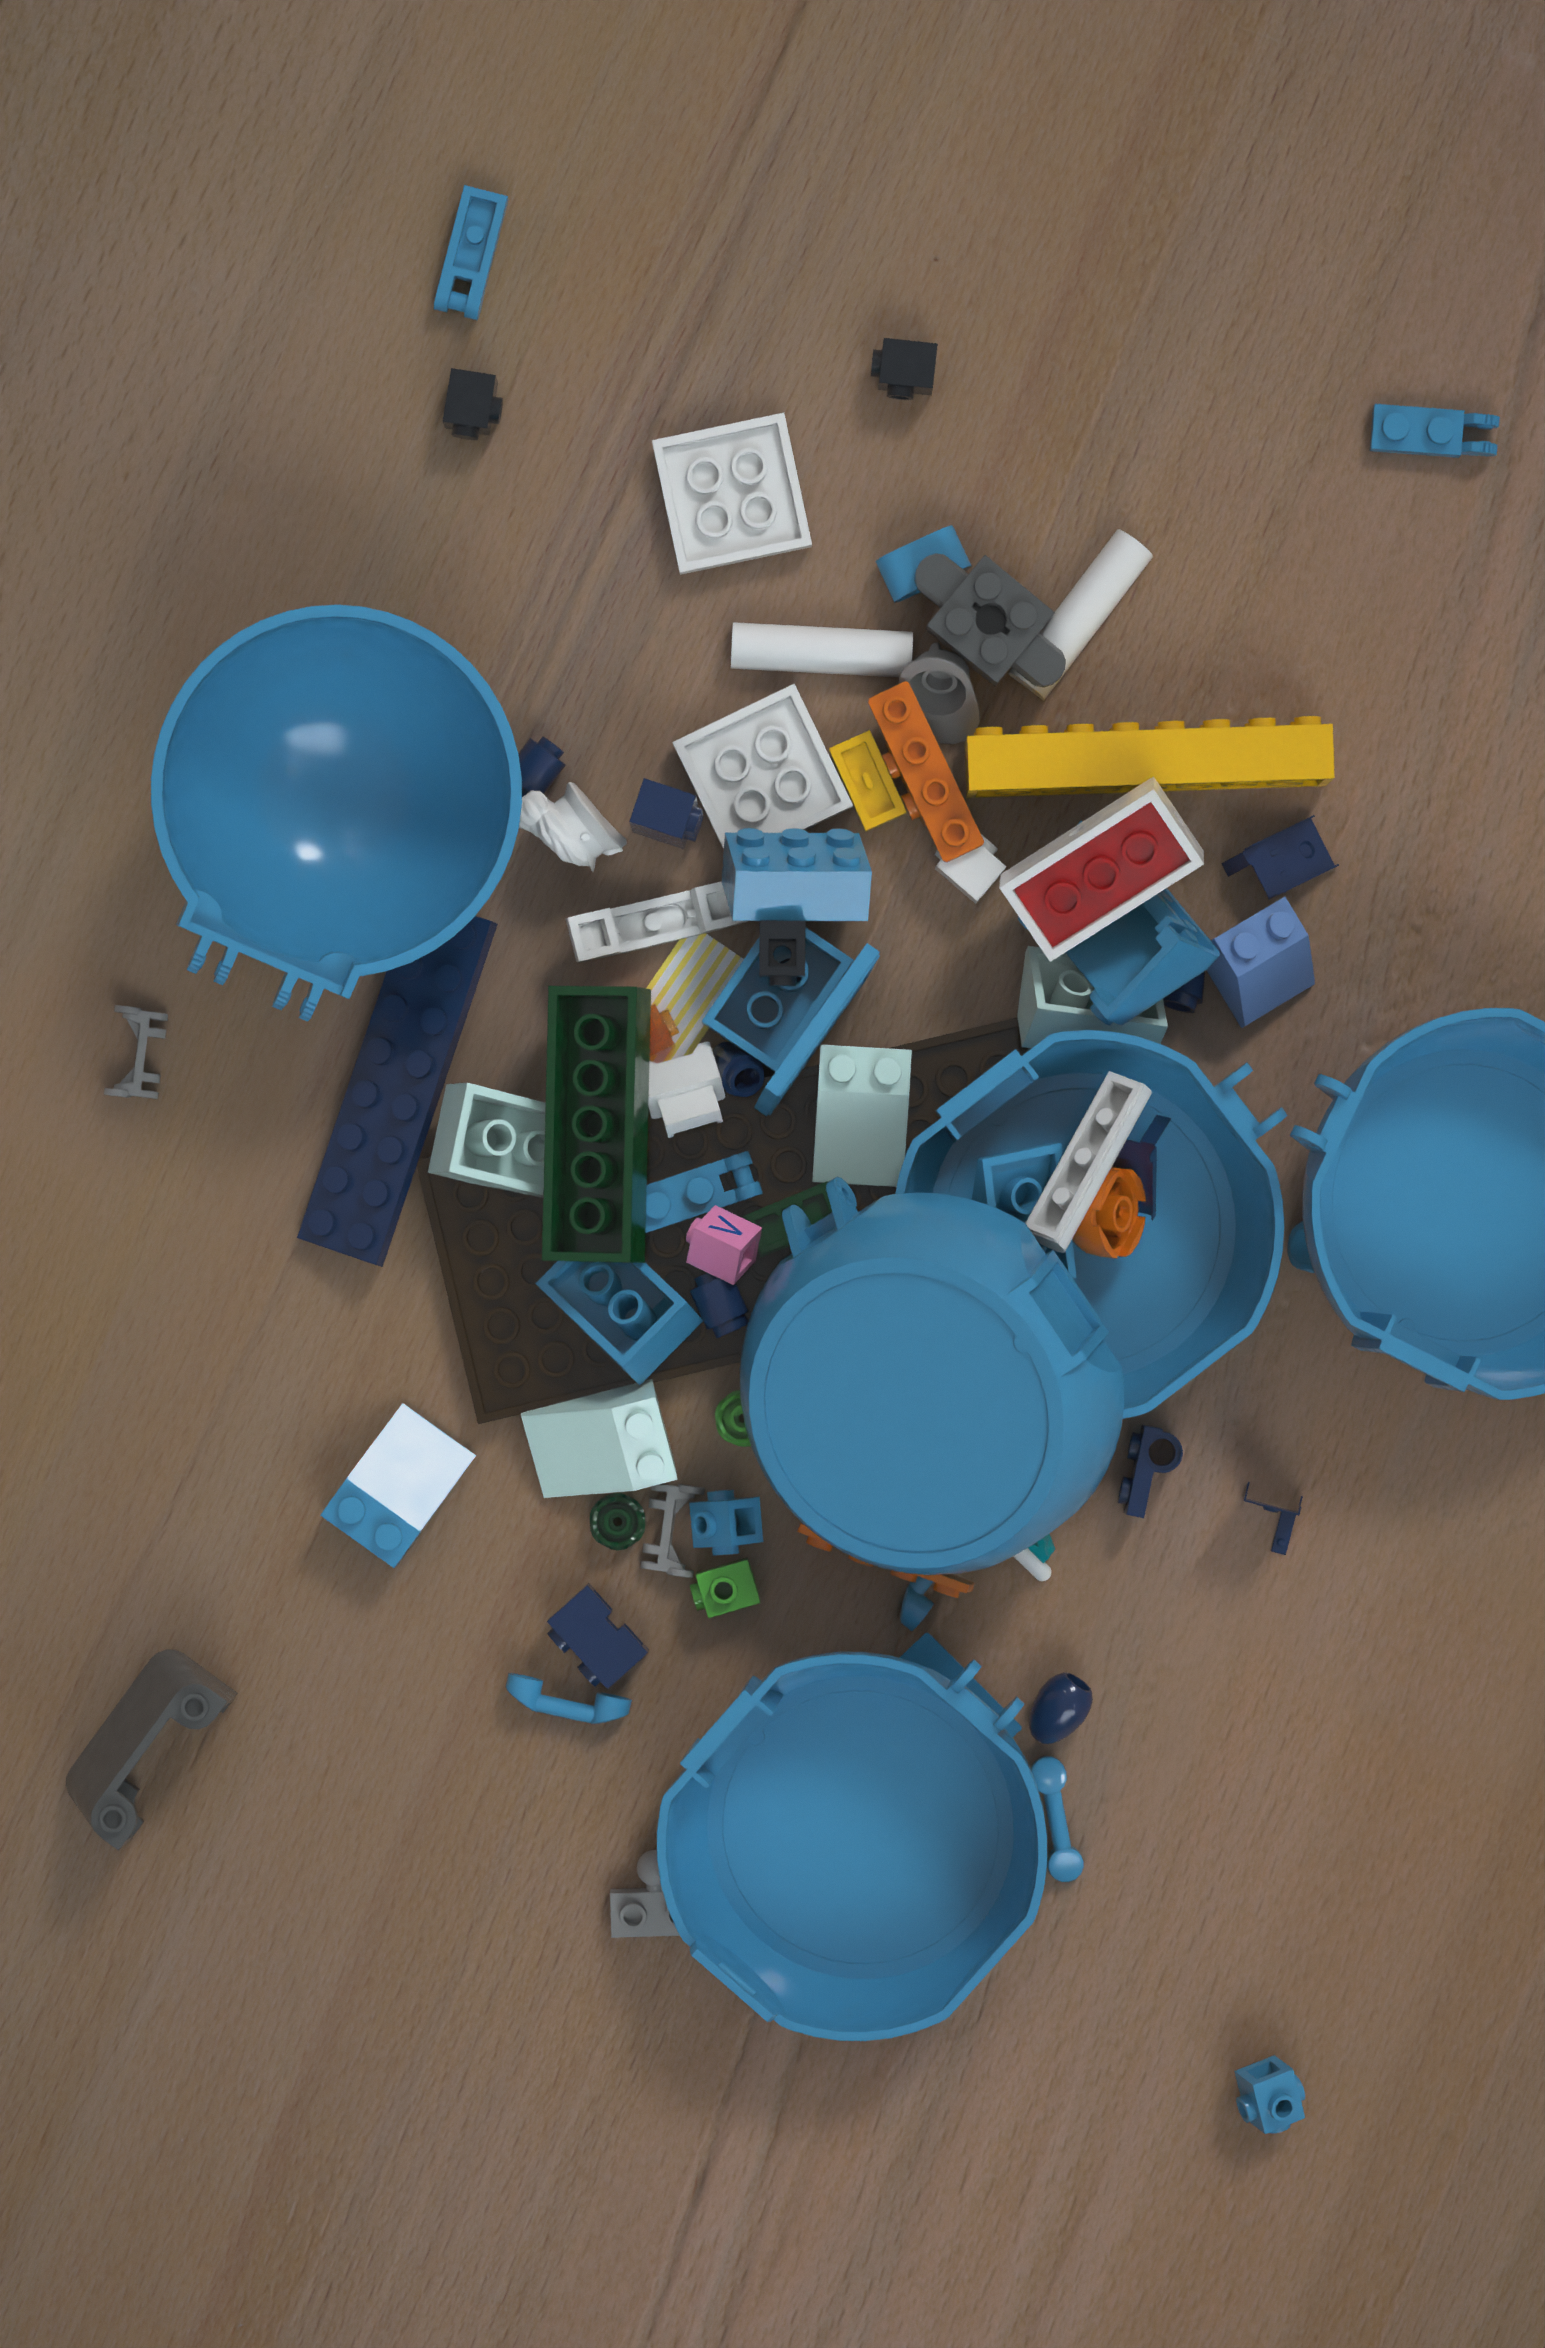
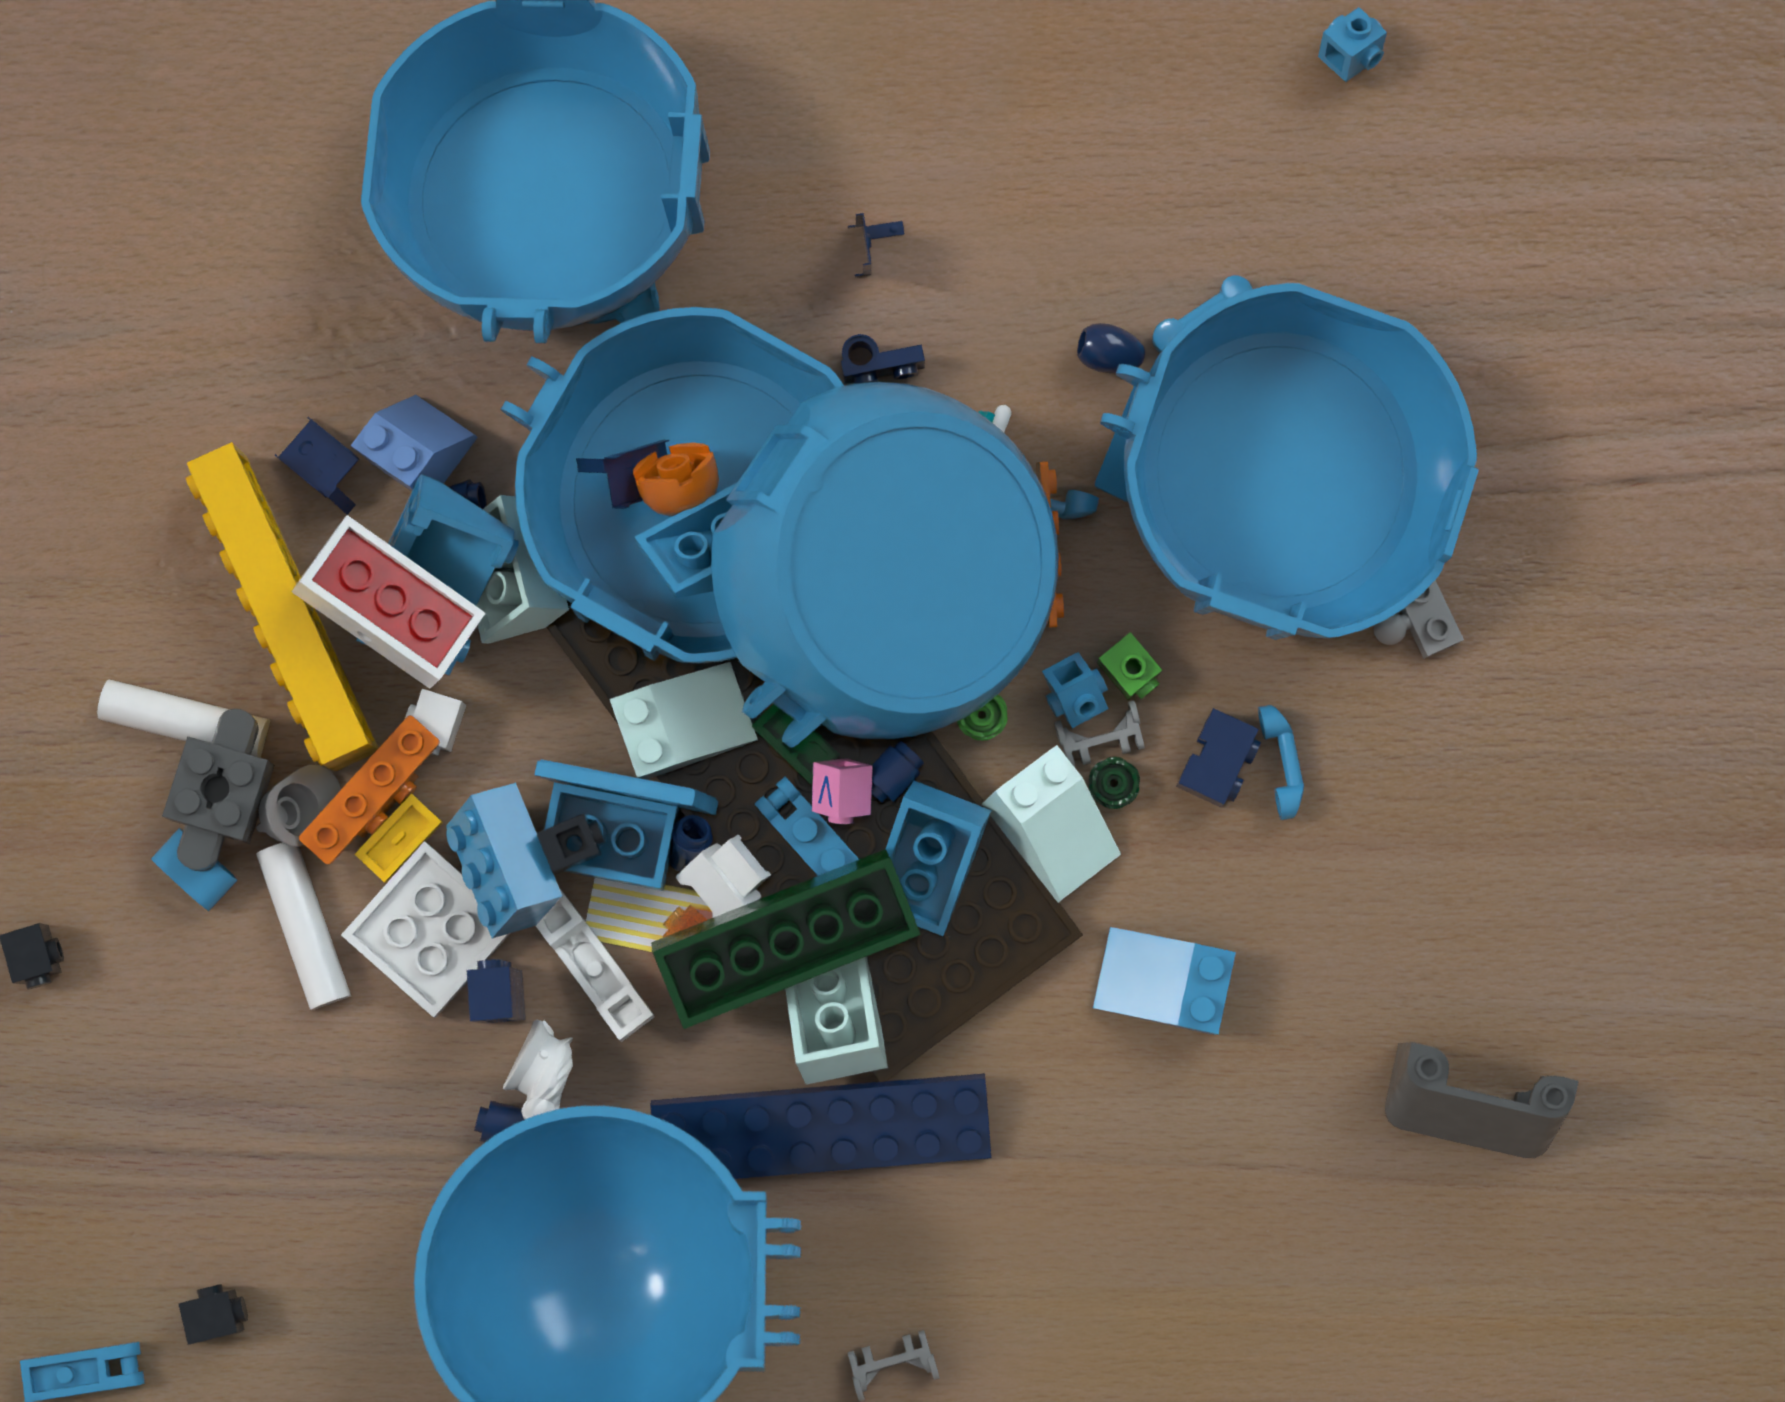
camera: 115 degrees left, 5 degrees down
(732, 493) = (200, 1058): white plate -> none
(1087, 1161) = (639, 507): white brick -> none

